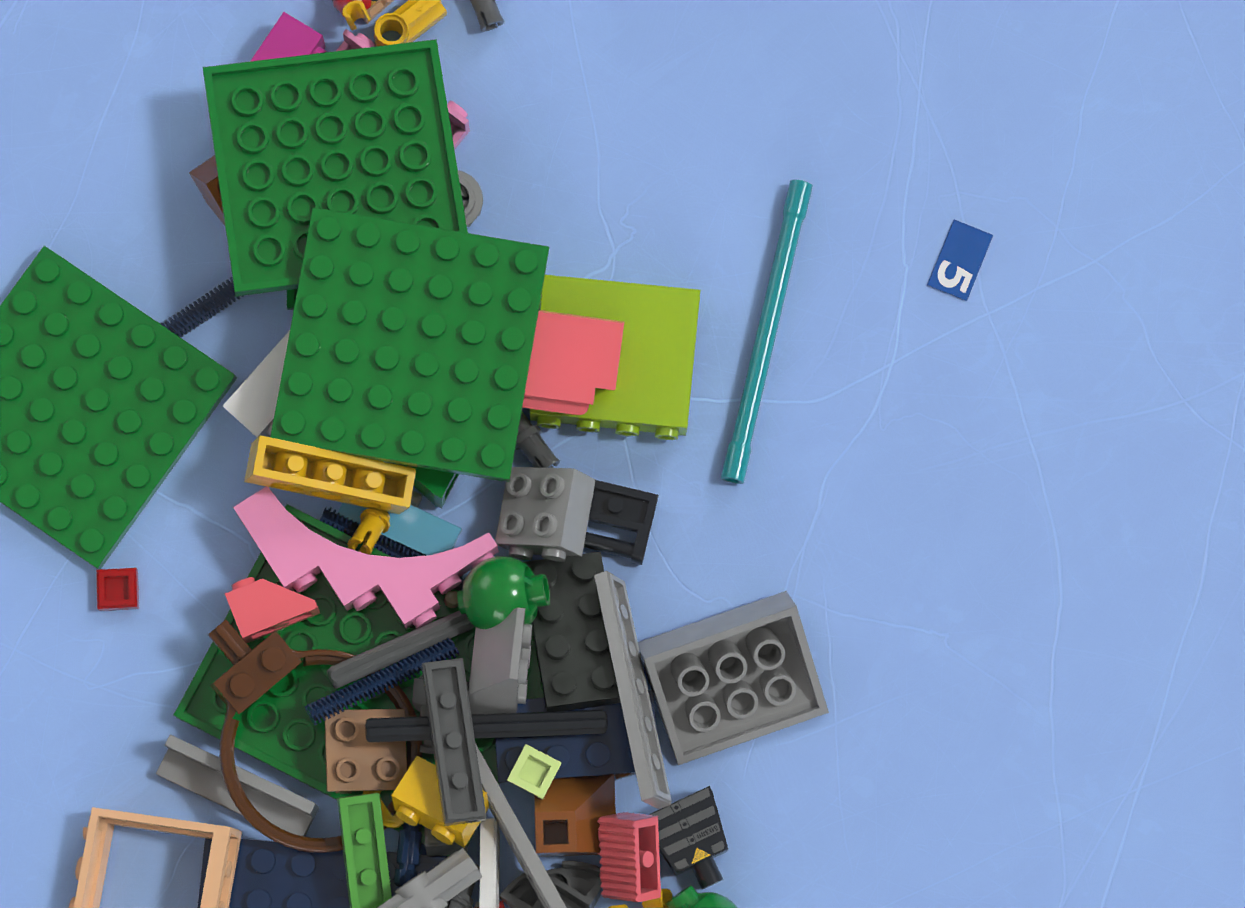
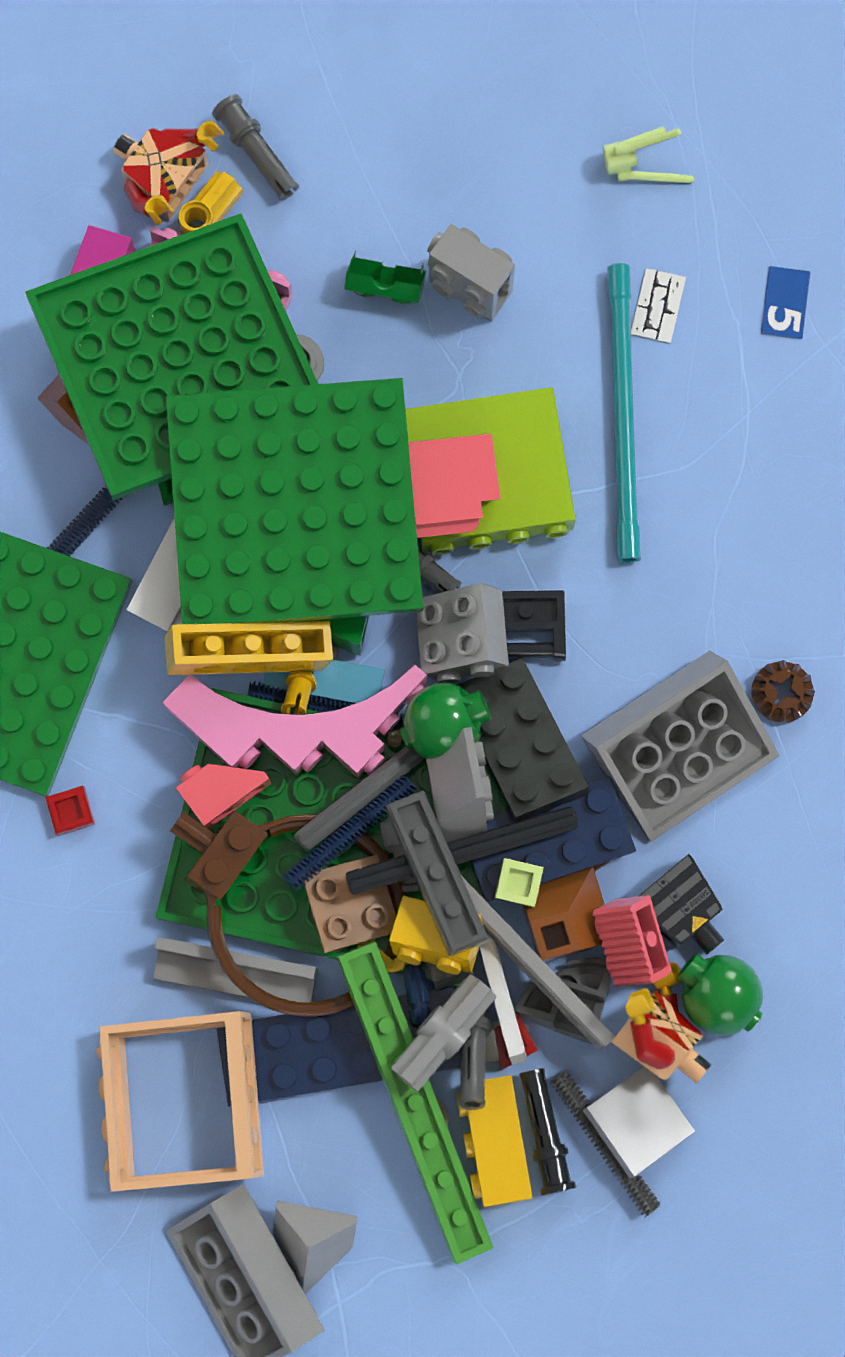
camera: 10 degrees left, 0 degrees up
(552, 134) = (372, 278): none -> green piece
(633, 690) = (594, 781): light grey tile -> none
(649, 153) = (470, 271): none -> light grey brick
(831, 231) = (658, 305): none -> white sticker
(833, 72) = (622, 156): none -> yellowish green plant
(849, 668) = (765, 695): none -> reddish brown gear

